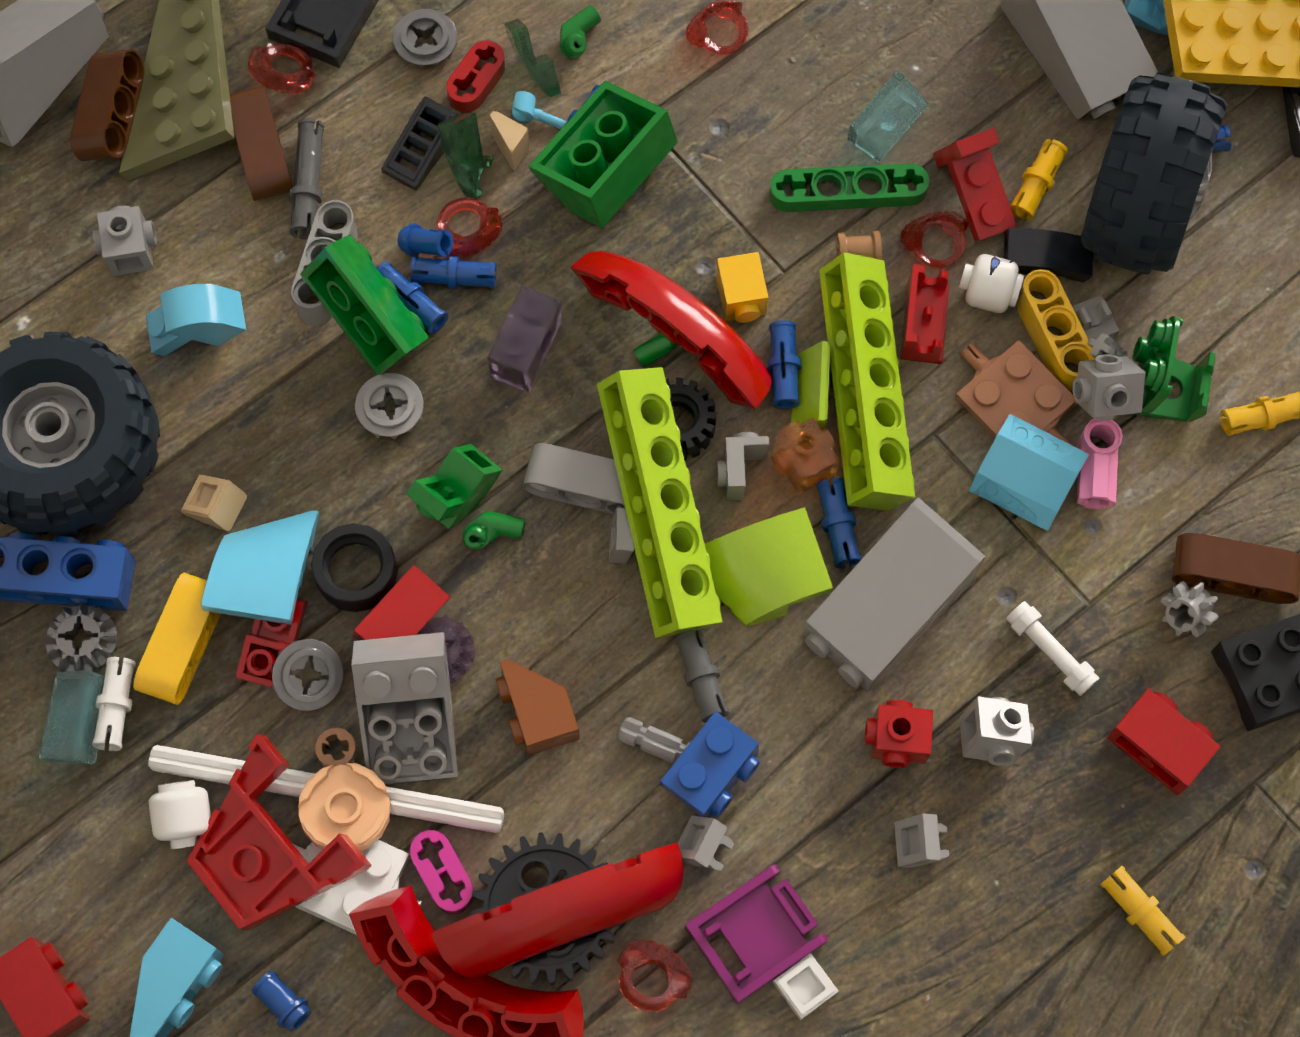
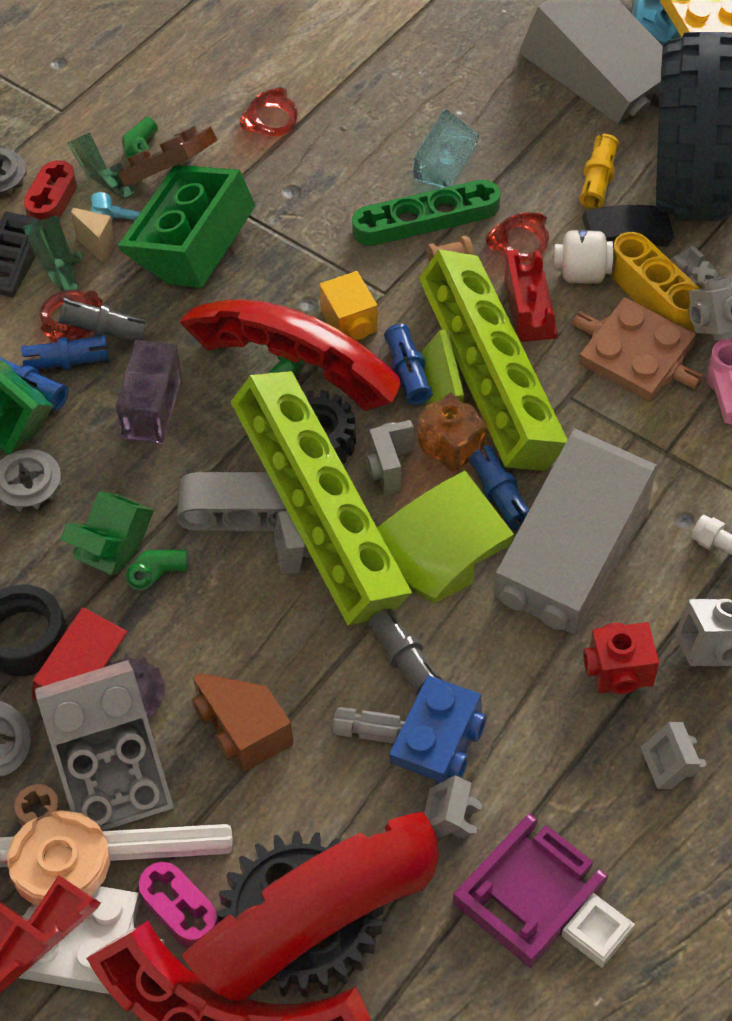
camera: 10 degrees left, 15 degrees down
(416, 241) = (31, 330): blue pin -> none
(495, 246) = (101, 320): none -> dark grey pin
(604, 68) = (174, 151): none -> reddish brown plate
(639, 954) = (415, 935): clear red piece -> none
(978, 183) = (543, 177): red bracket -> none
(1028, 472) = (670, 402): medium azure slope -> none

